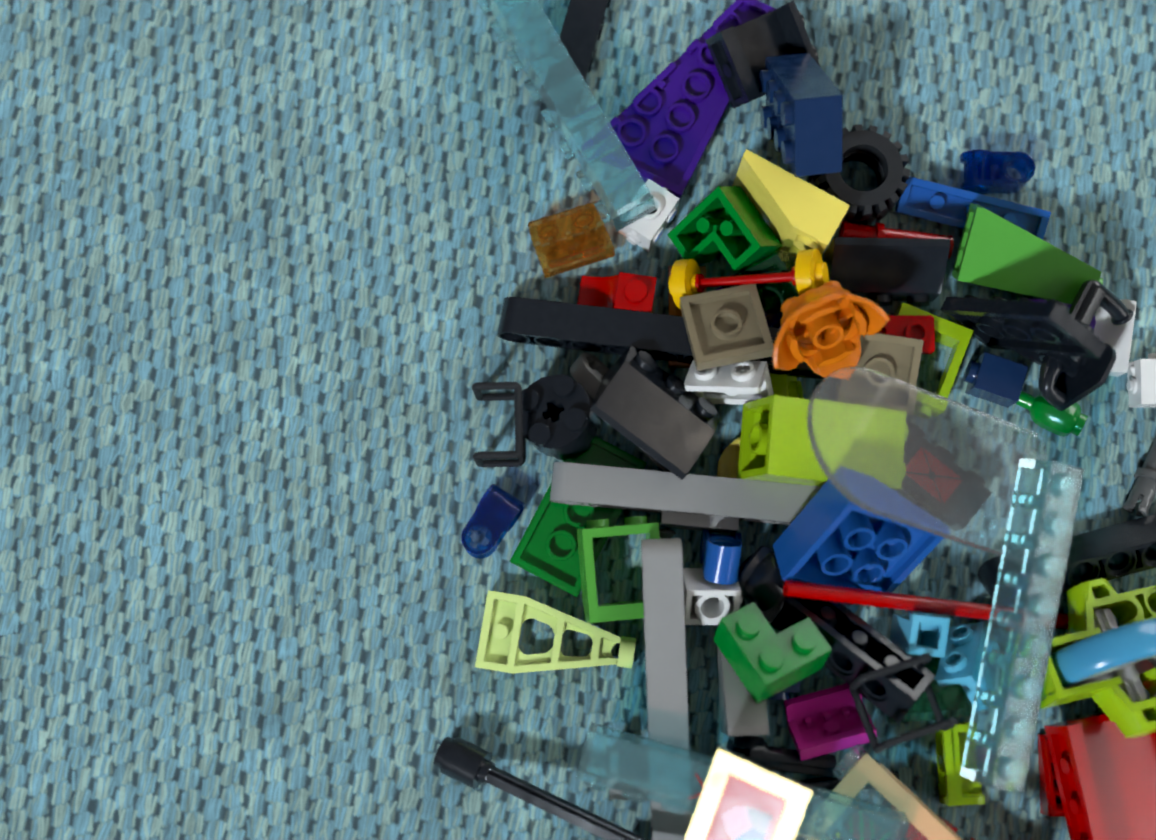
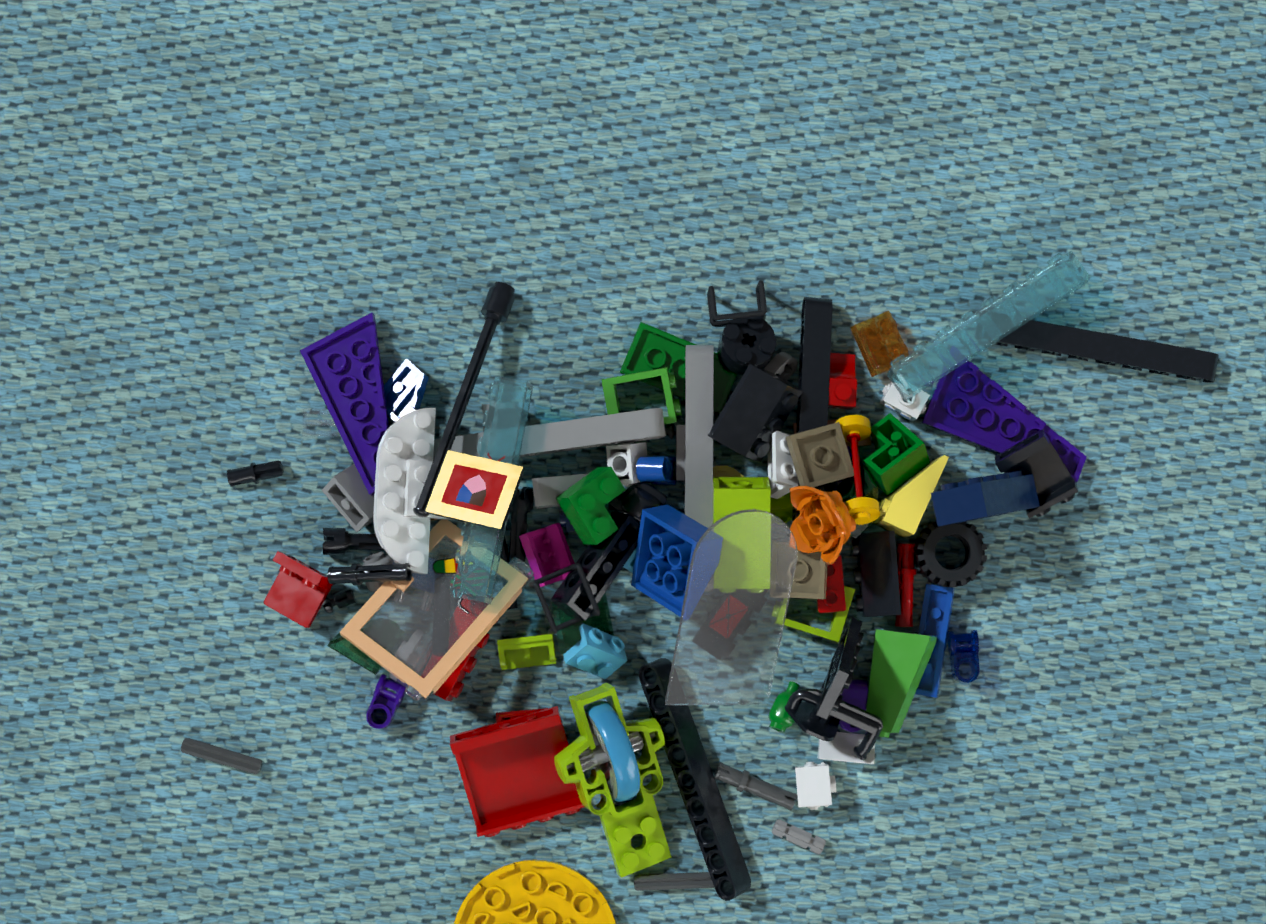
camera: 85 degrees right, 5 degrees up
(494, 515) = (673, 307): clear blue piece -> none
(502, 630) = (590, 321): yellowish green plate -> none
(896, 601) = (635, 615): red piece -> none
(920, 633) = (614, 612): medium azure brick -> none
(995, 379) = (805, 662): dark blue brick -> none
(1021, 624) = (626, 675): clear light blue brick -> none

